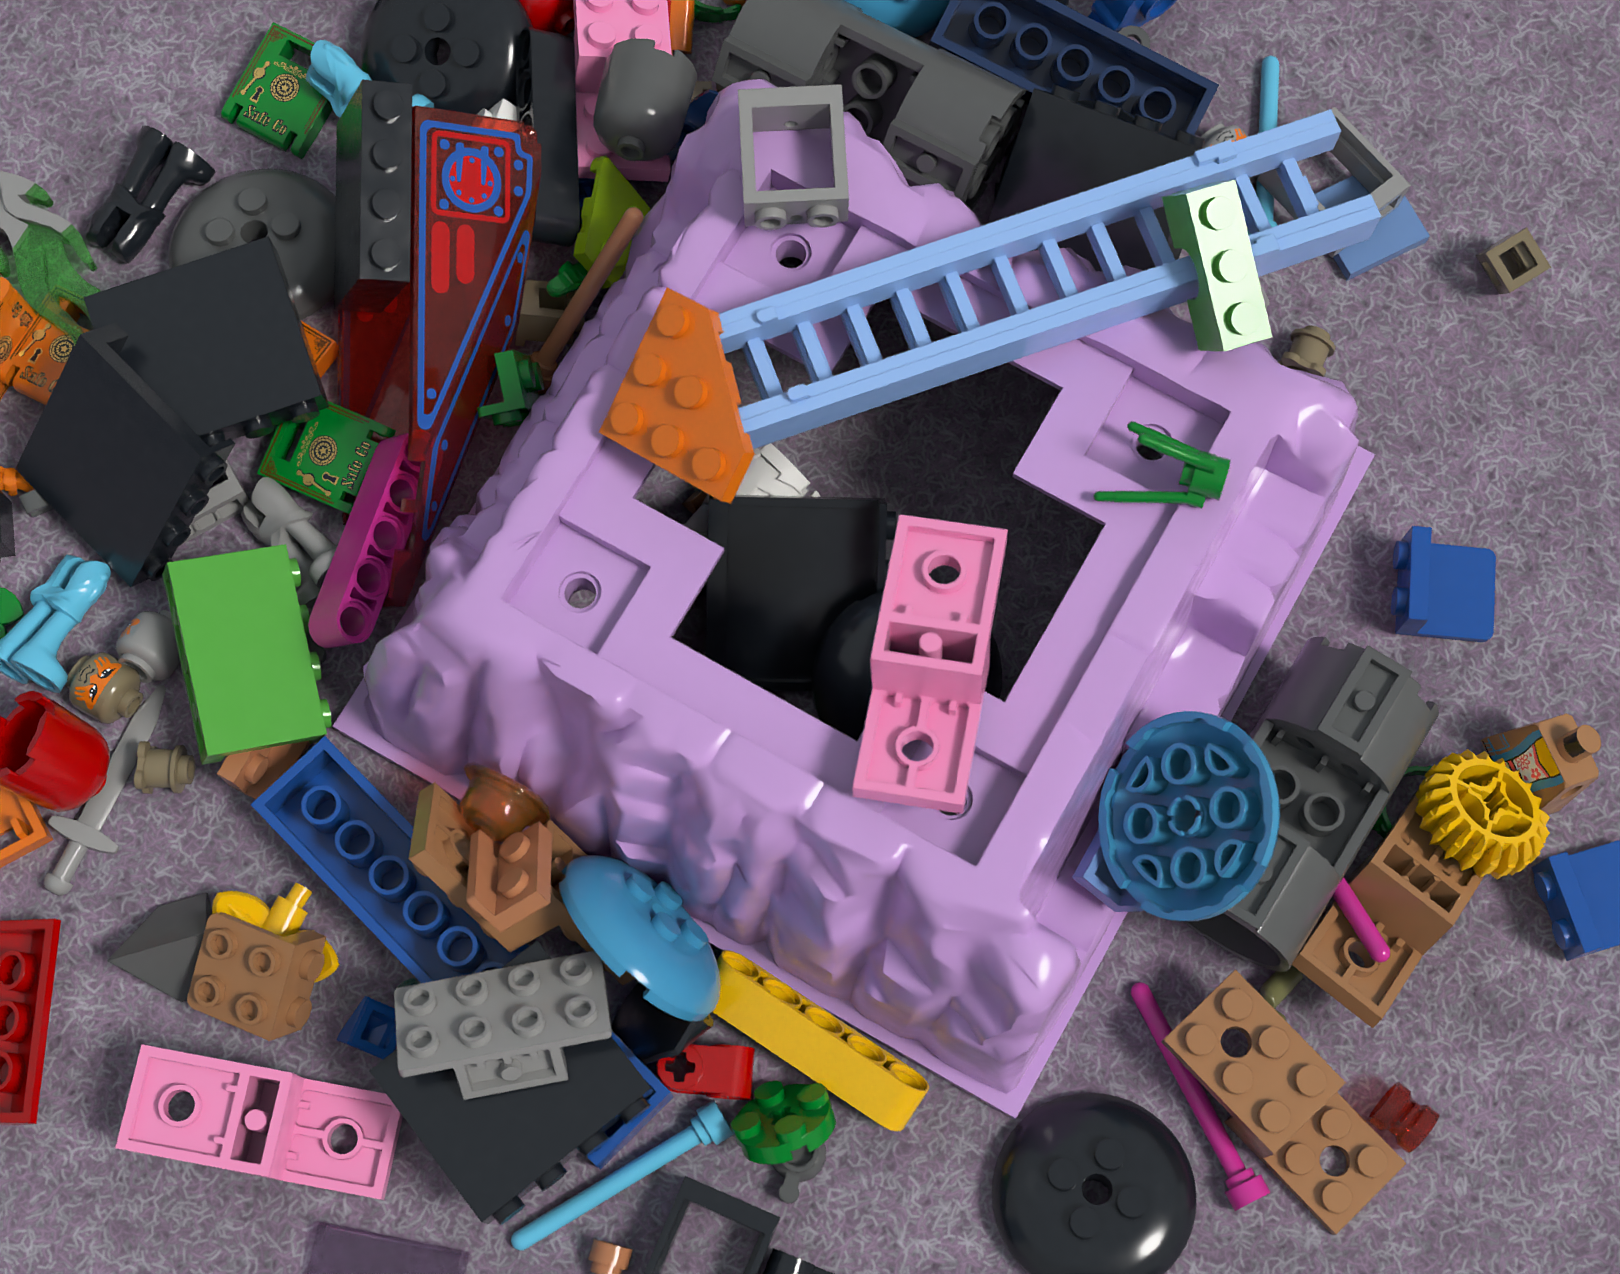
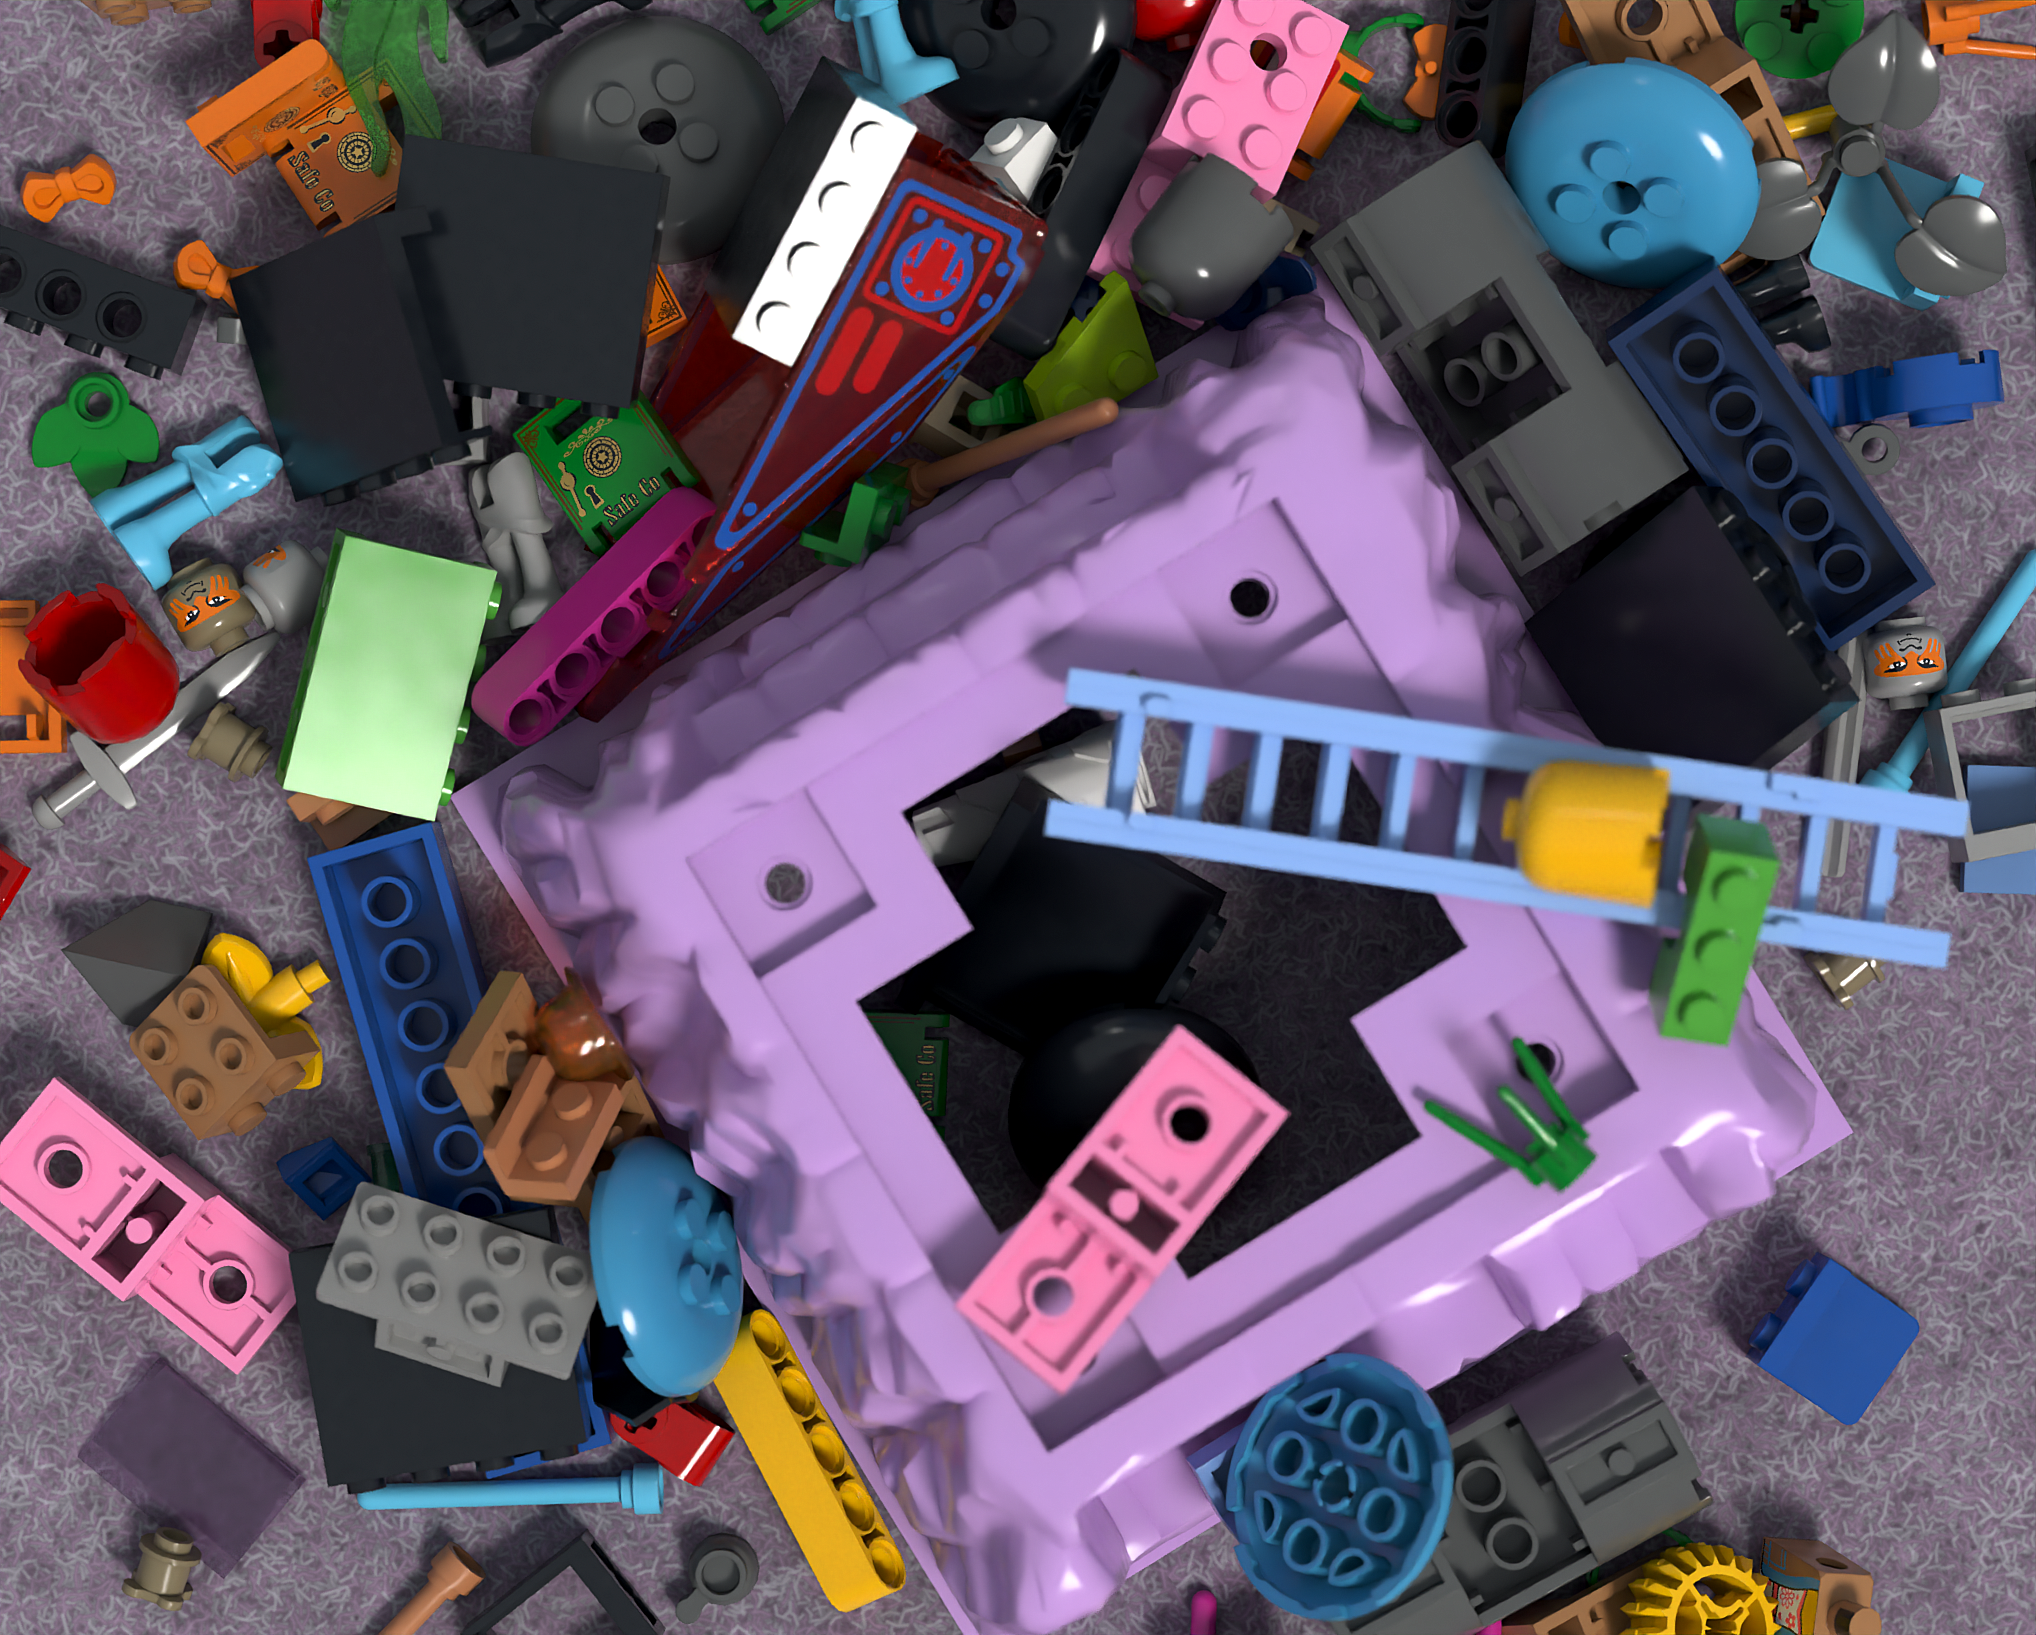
camera: 30 degrees right, 15 degrees up
(683, 400) = (1007, 755): orange plate -> none
(783, 1121) = (727, 1509): green plate -> none
(793, 110) = (1336, 445): light grey window -> none
(1100, 236) = (1589, 830): none -> yellow cylinder

